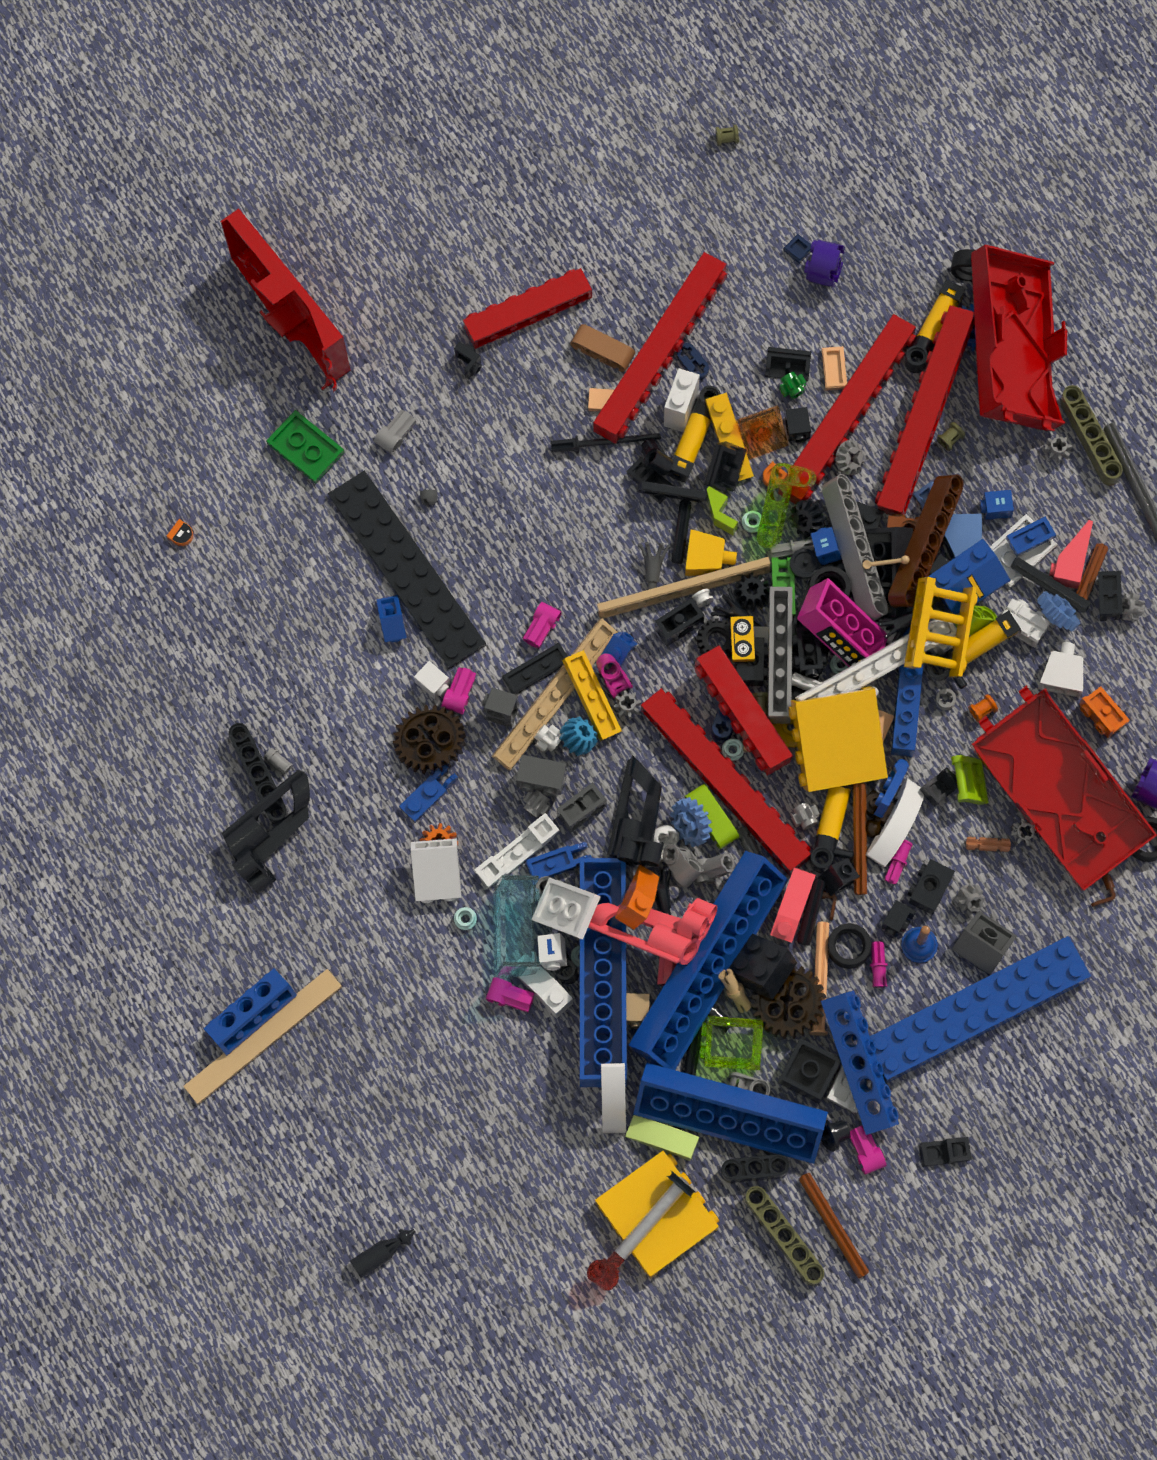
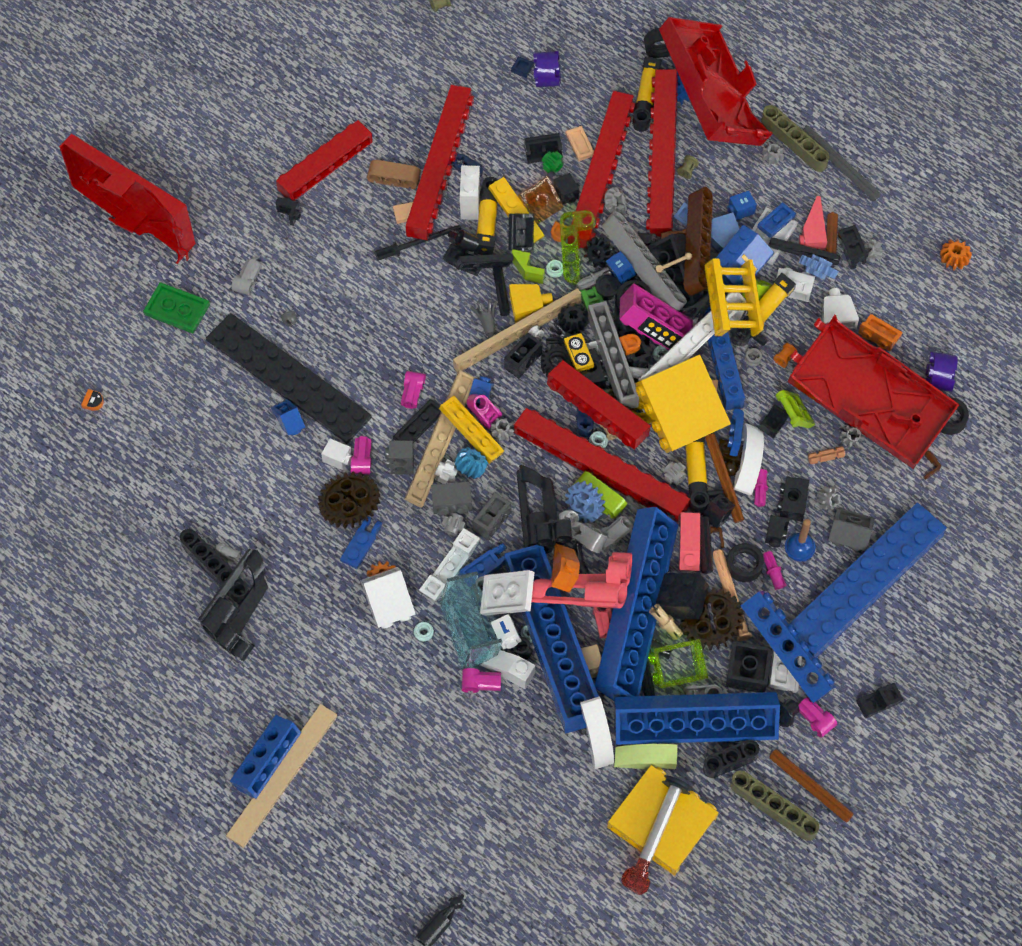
camera: 20 degrees left, 10 degrees down
(803, 647) = (630, 343): none -> orange tile

